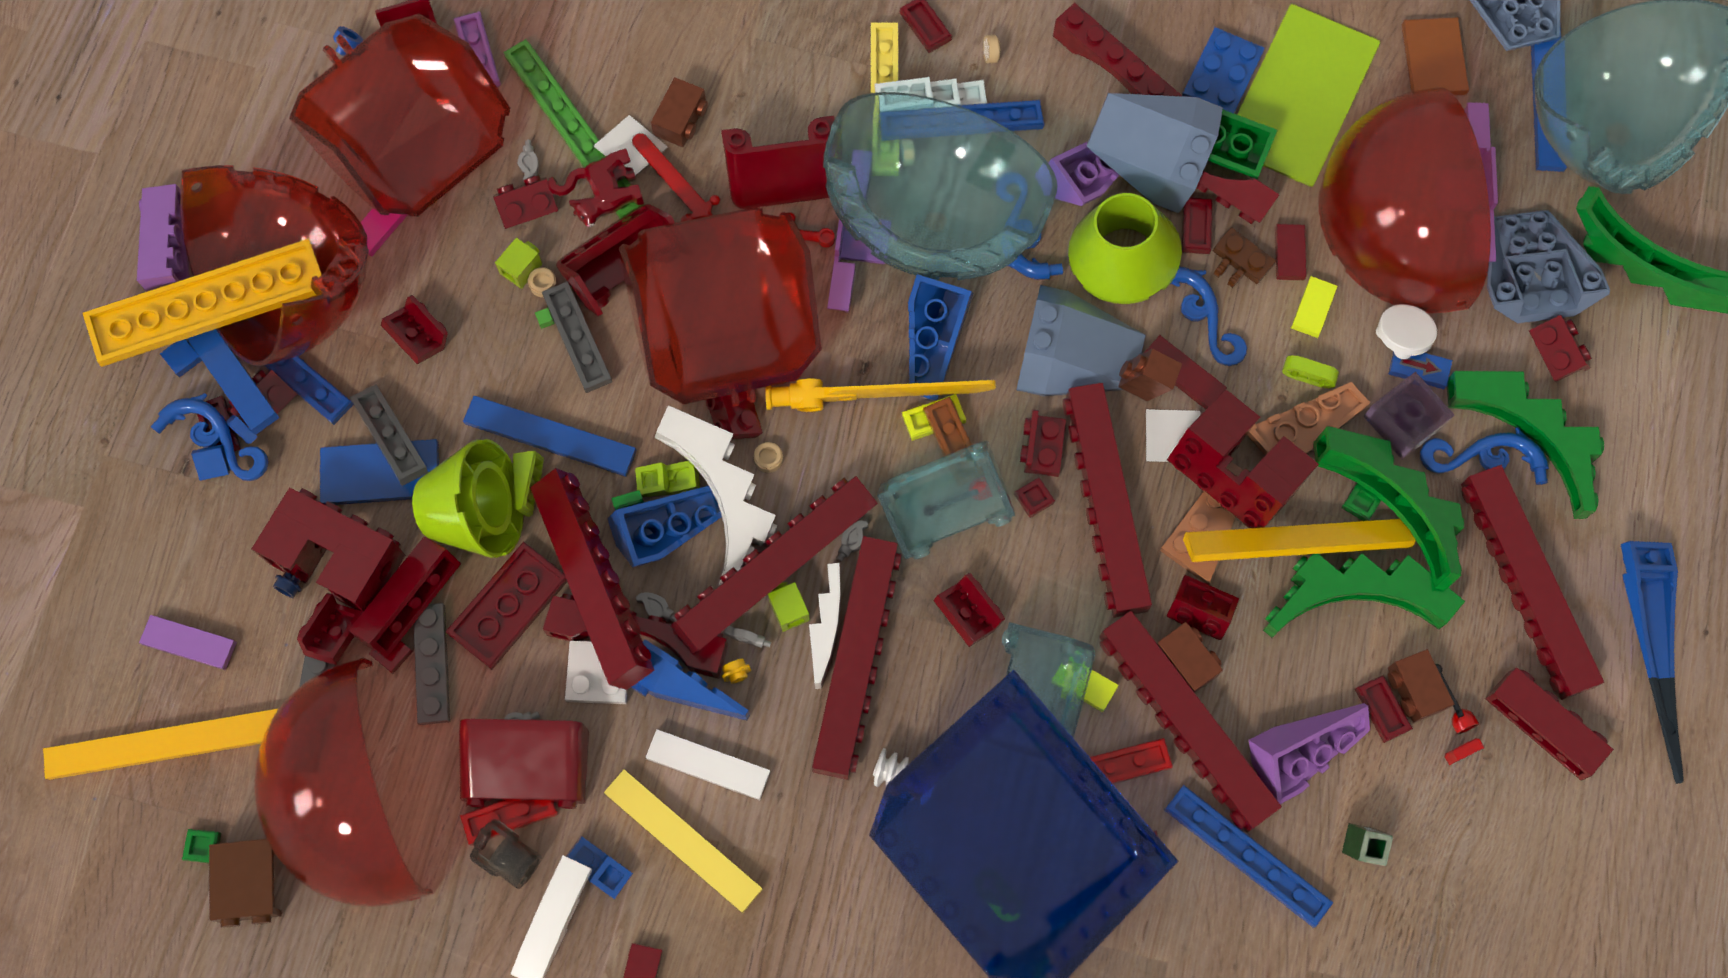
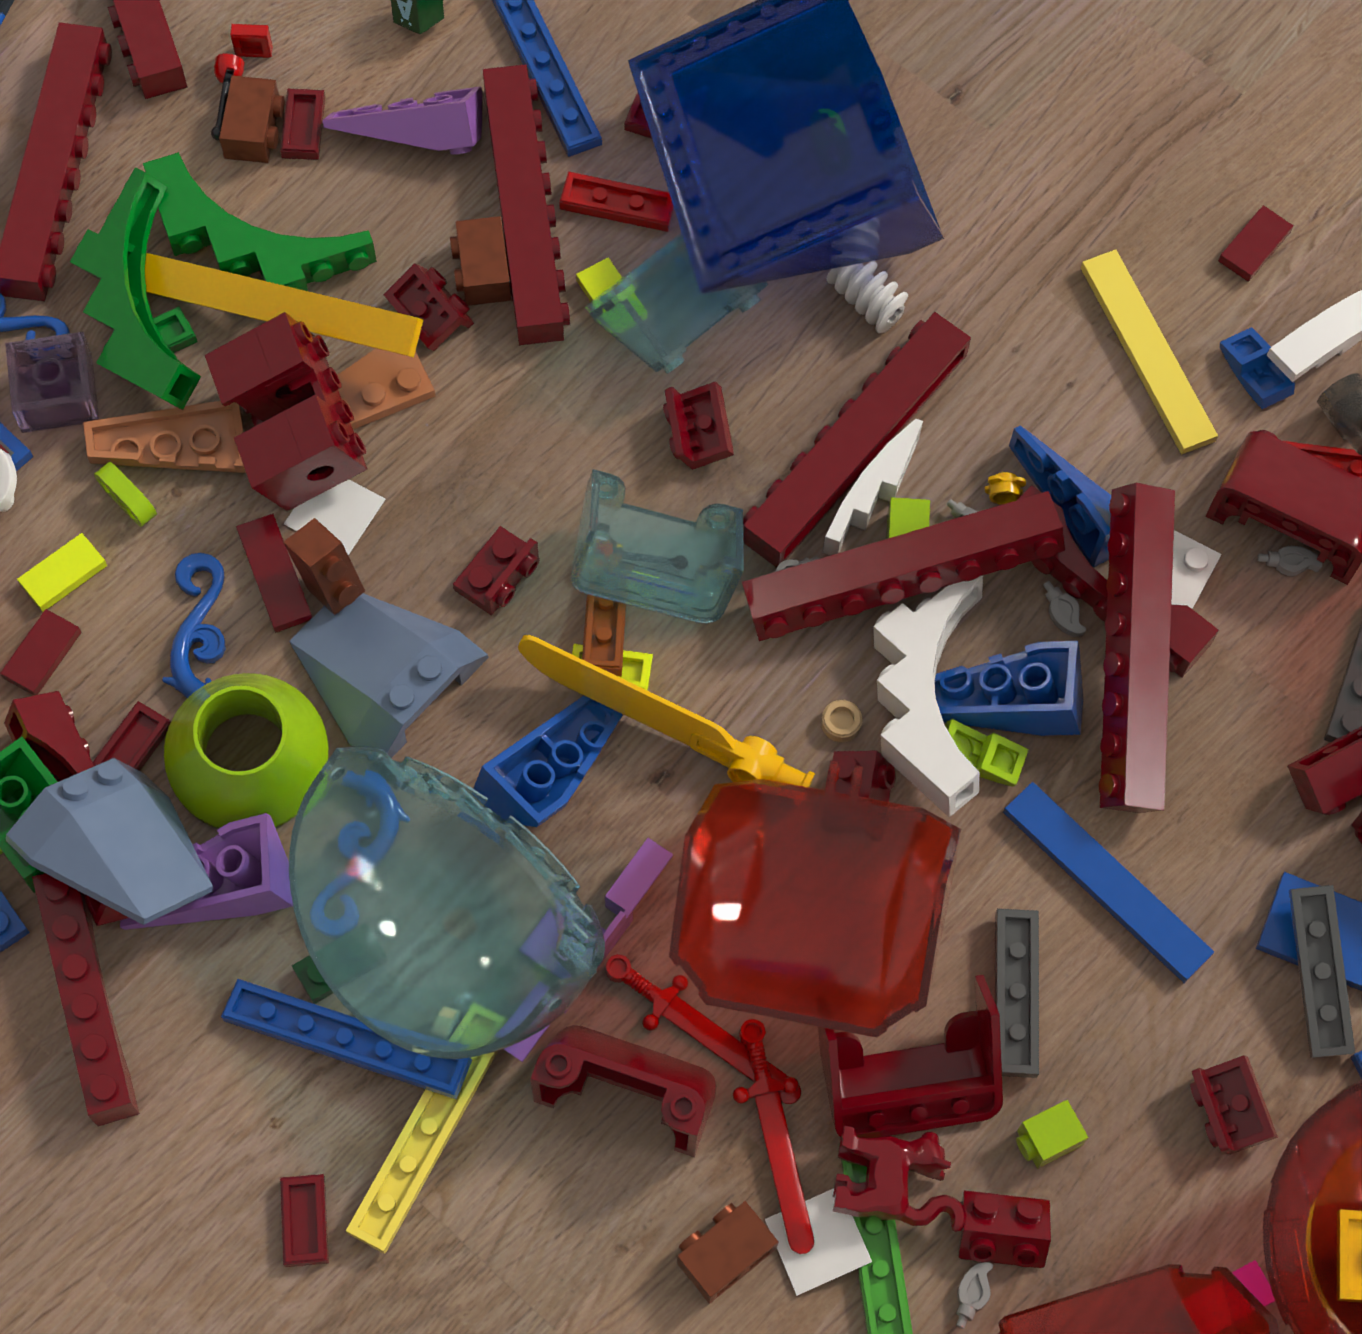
camera: 155 degrees left, 5 degrees down
(470, 501) = (1252, 809): lime cone -> none
(507, 605) = (1247, 699): dark red tile -> none
(527, 472) = (1161, 835): lime slope -> none
(541, 280) = (1028, 1098): tan tile -> none
(544, 318) = (1049, 1045): bright green piece -> none
(627, 500) = (1045, 740): green tile -> none
(708, 764) = (1084, 413): white tile -> none
(944, 90) = (367, 1090): white slope -> none
(991, 49) = (239, 1124): tan tile -> none
(1034, 497) = (545, 518): dark red tile -> none
(1107, 499) = (461, 471): dark red brick -> none
(1243, 256) = (101, 676): reddish brown hinge -> none

